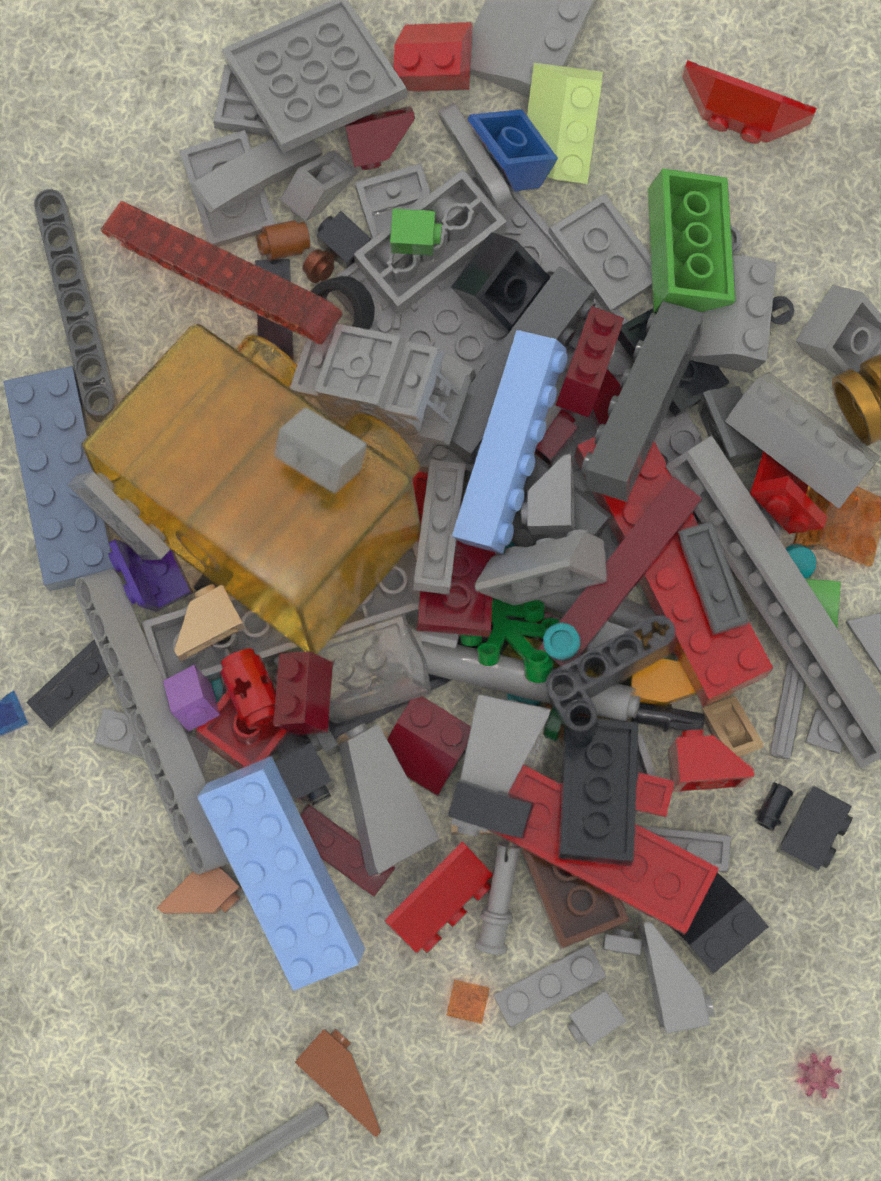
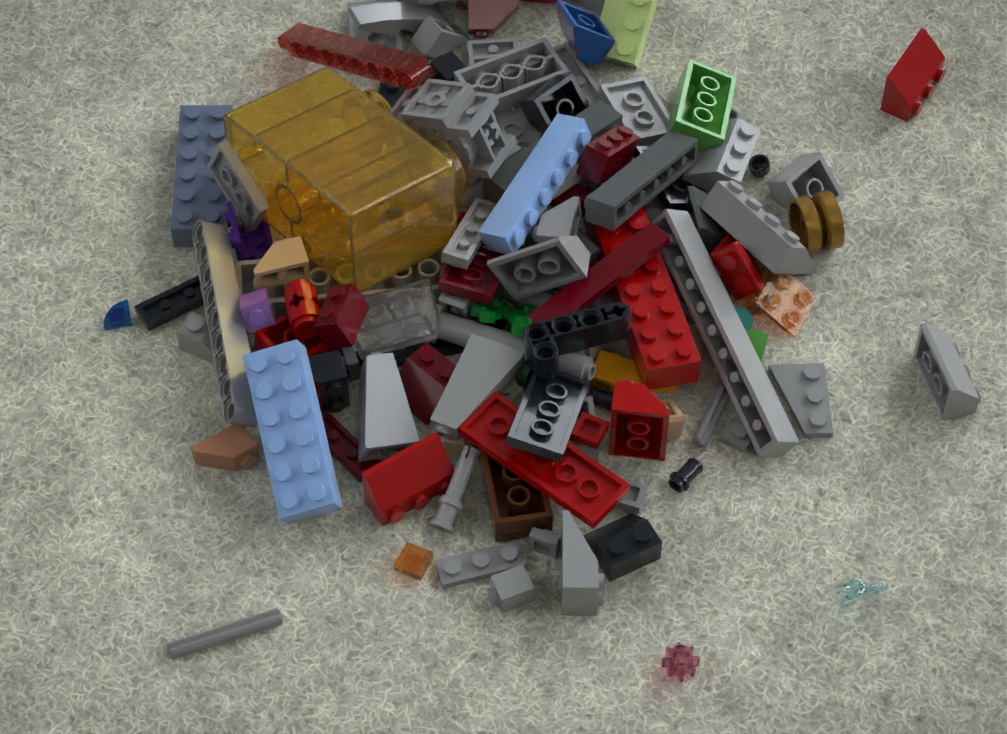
camera: 10 degrees right, 25 degrees down
(68, 291) = (246, 55): dark grey beam -> none
(320, 450) = (392, 128): light grey brick -> none
(337, 1073) = (295, 585): dark orange slope -> none
(414, 232) = (500, 60): bright green brick -> none
(475, 155) = (556, 34): light grey beam -> none
(490, 809) = (462, 407): black slope -> none
(561, 641) = (543, 309): teal tile -> none
(712, 578) = (667, 293): dark grey tile -> none
(744, 106) = (762, 39): red wedge -> none
(815, 829) = (714, 493): black brick -> none

